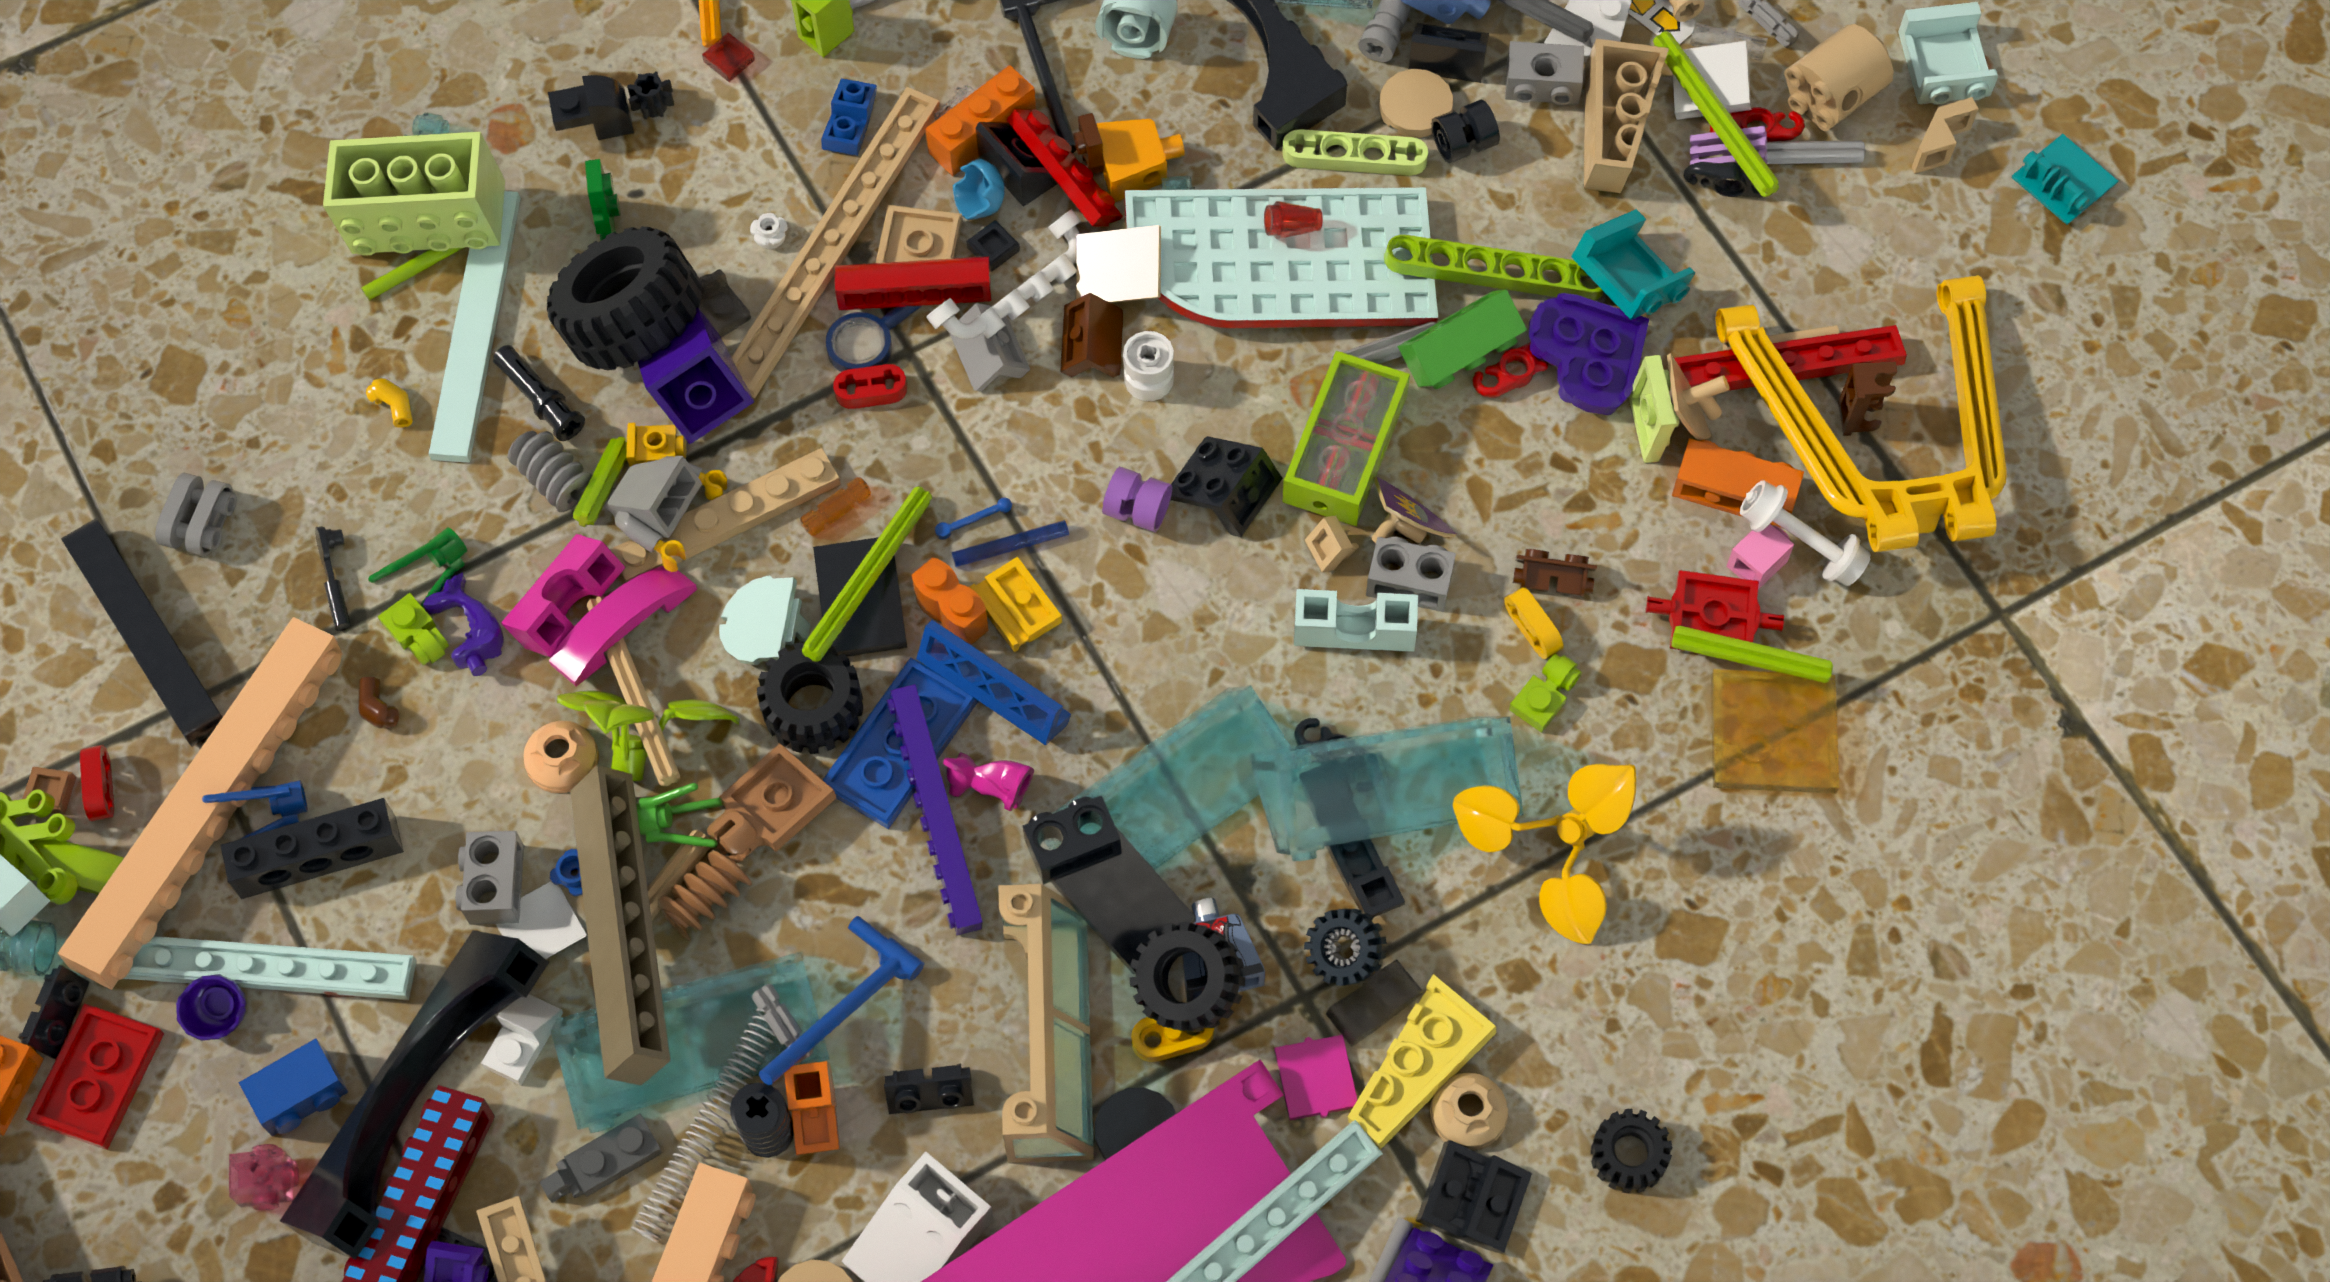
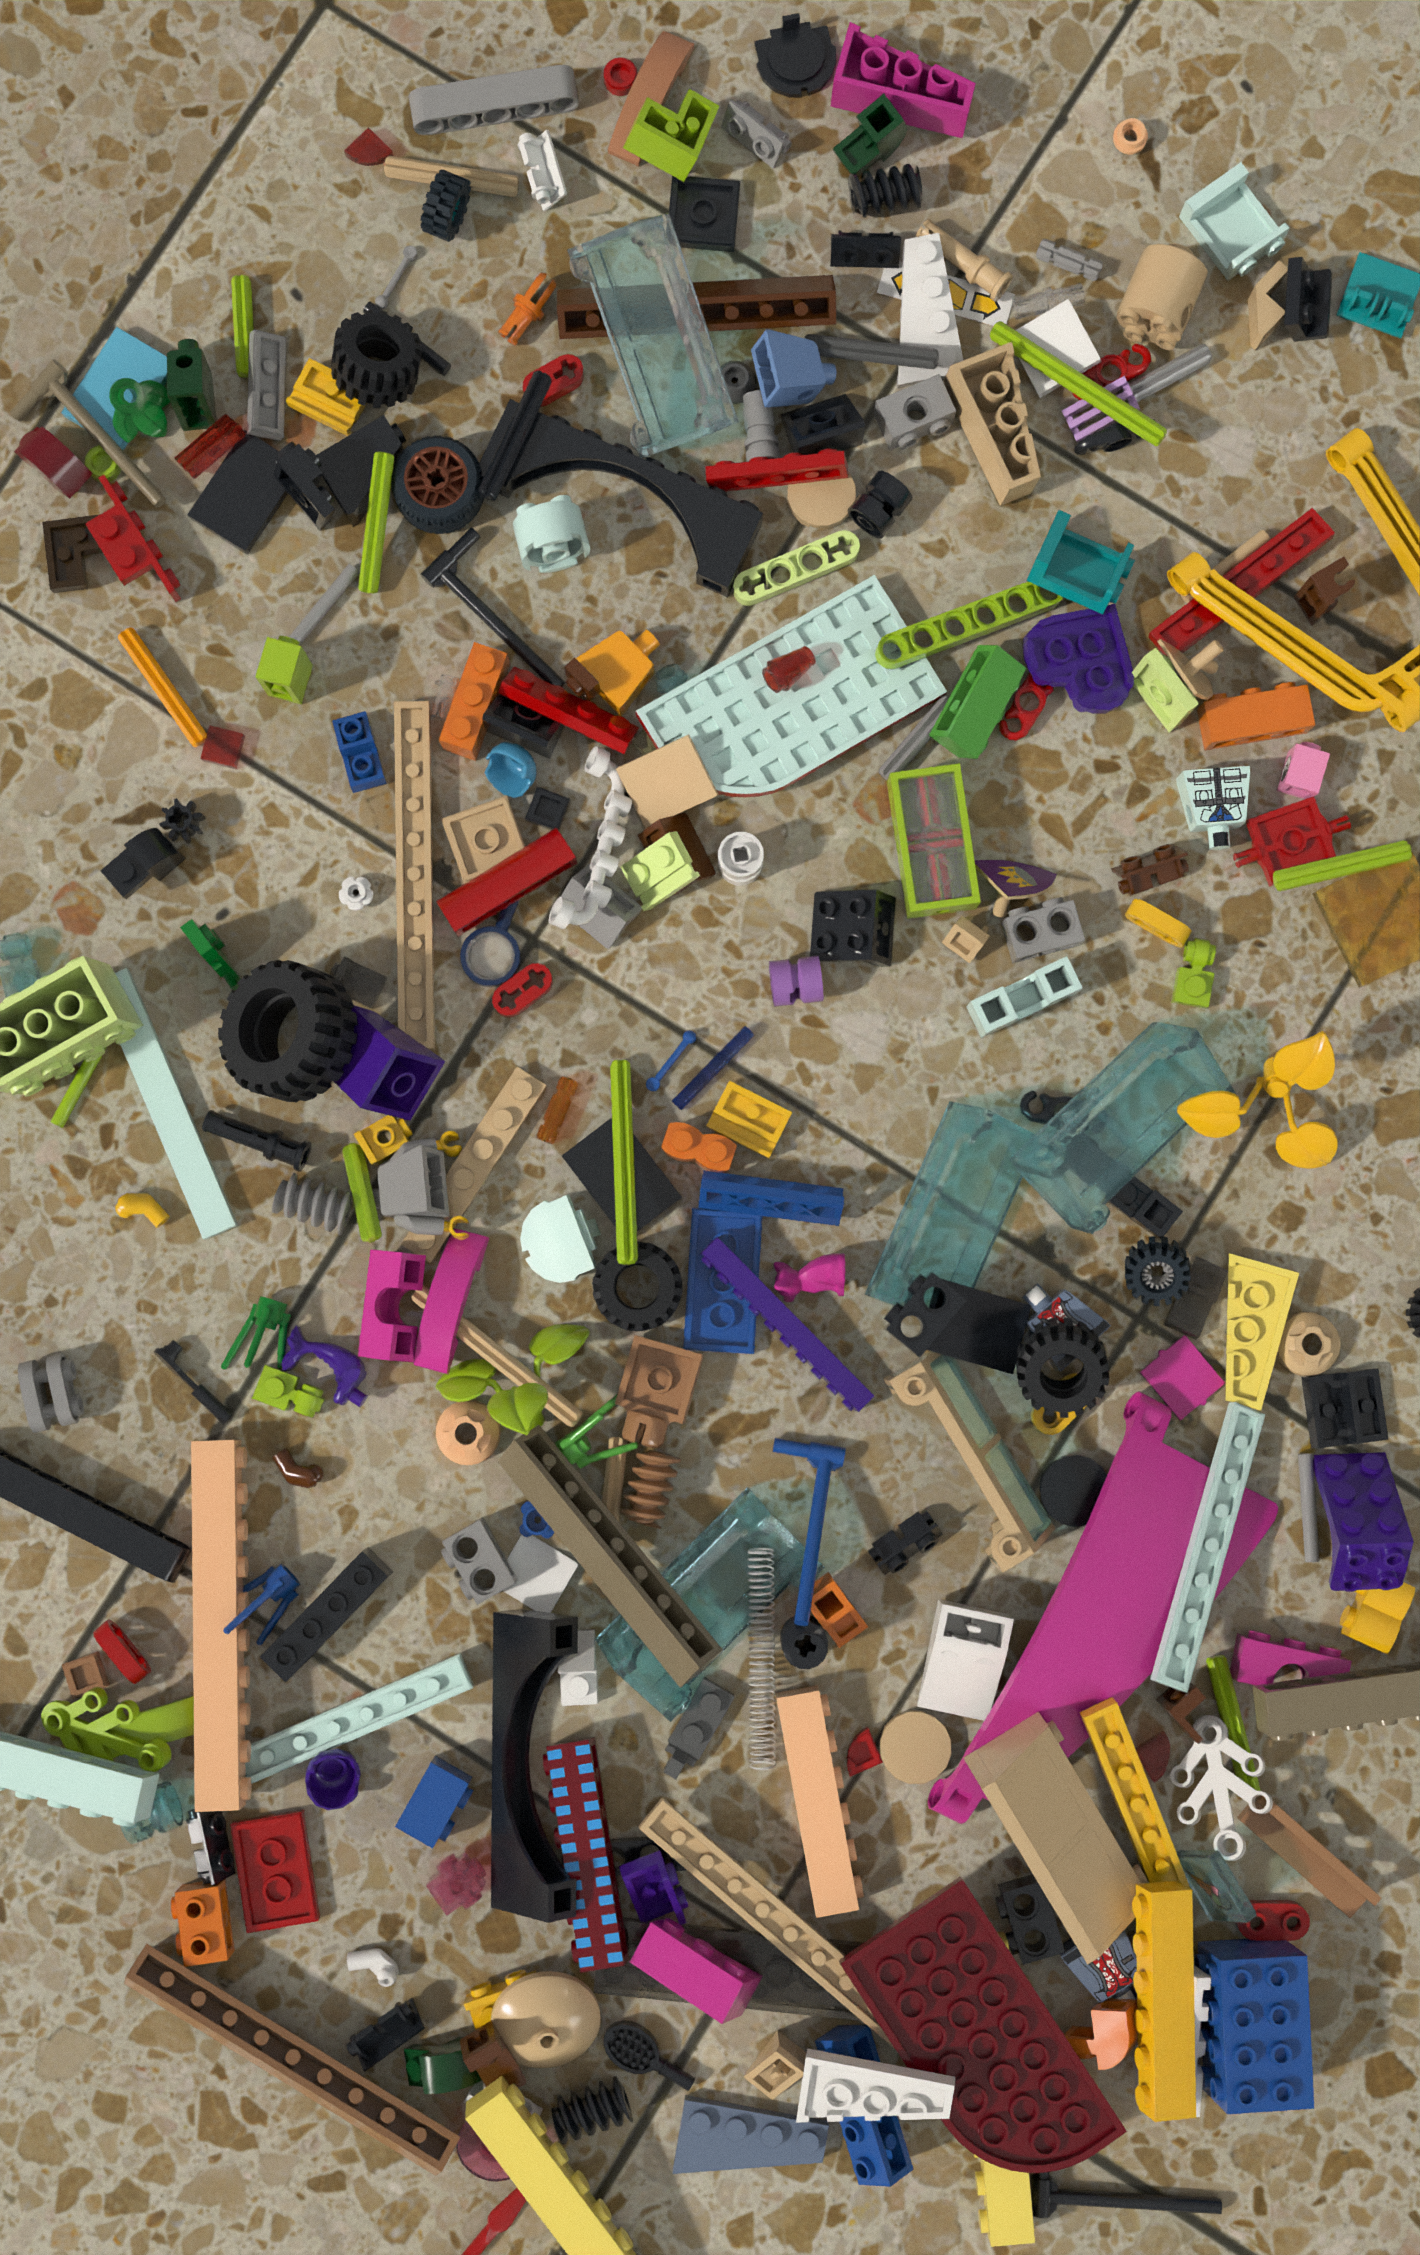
camera: 30 degrees left, 20 degrees up
(132, 1221) = (377, 1961): none -> white arm
(778, 1016) = (774, 1562): light grey axle -> none
(1064, 339) = (660, 870): none -> yellowish green plate
(1384, 59) = (765, 472): none -> red plate
(1655, 539) = (1215, 801): none -> light aqua torso
(1844, 562) = (1300, 737): white piece -> none
(1983, 146) = (1307, 301): none -> black bracket

